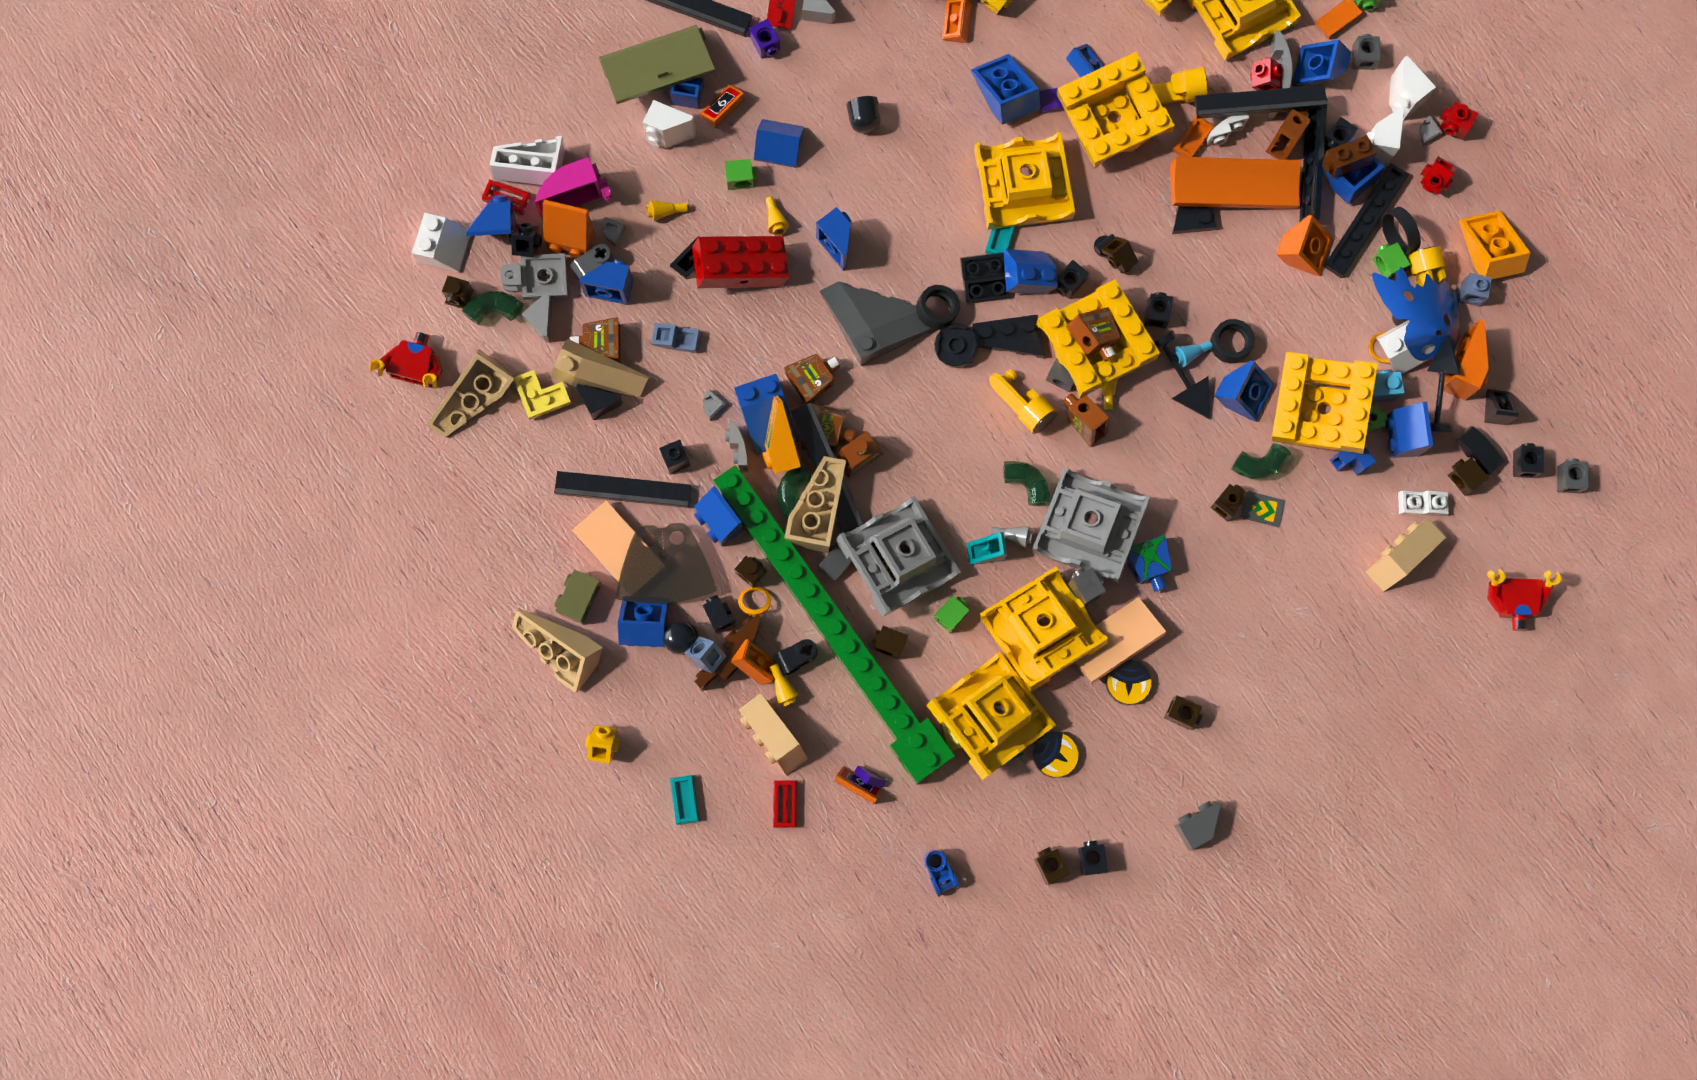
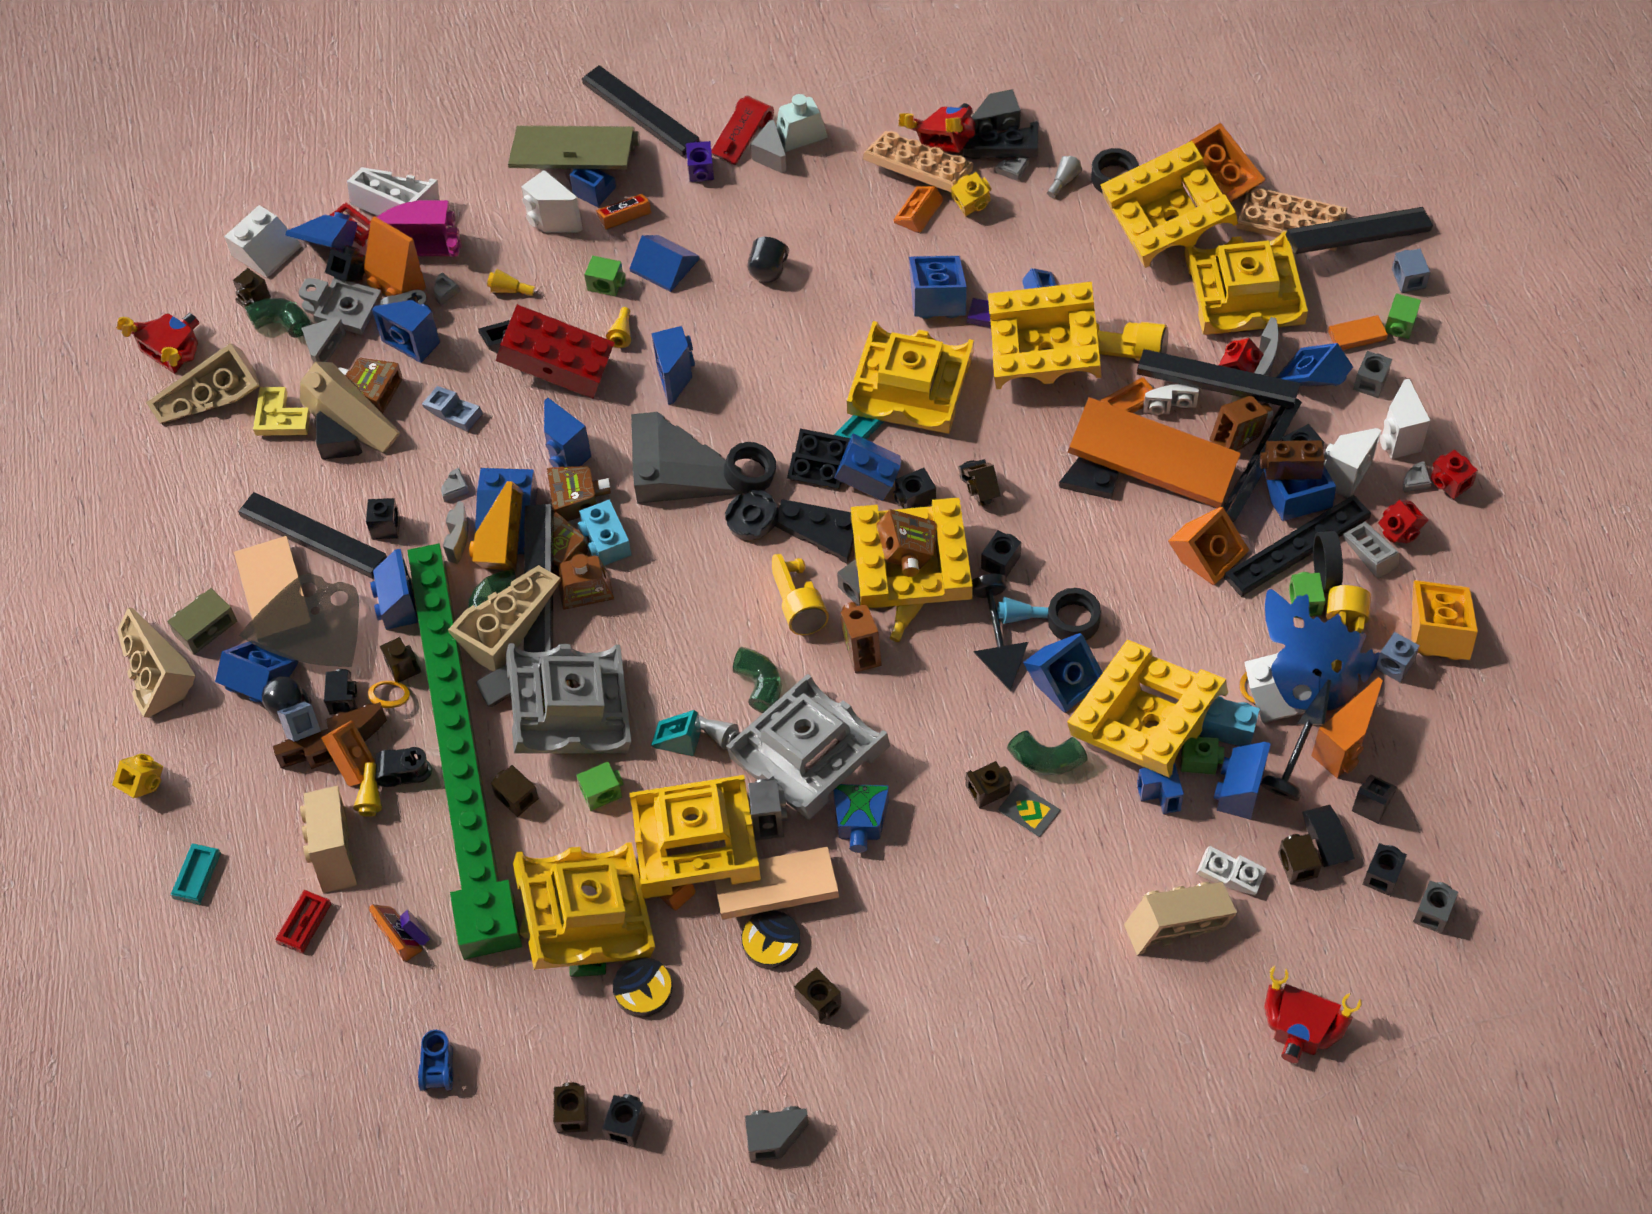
camera: 30 degrees right, 20 degrees down
(784, 335) = (565, 437): none -> blue slope
(852, 404) = (604, 533): none -> medium azure brick
(1430, 200) = (1380, 563): none -> light grey slope

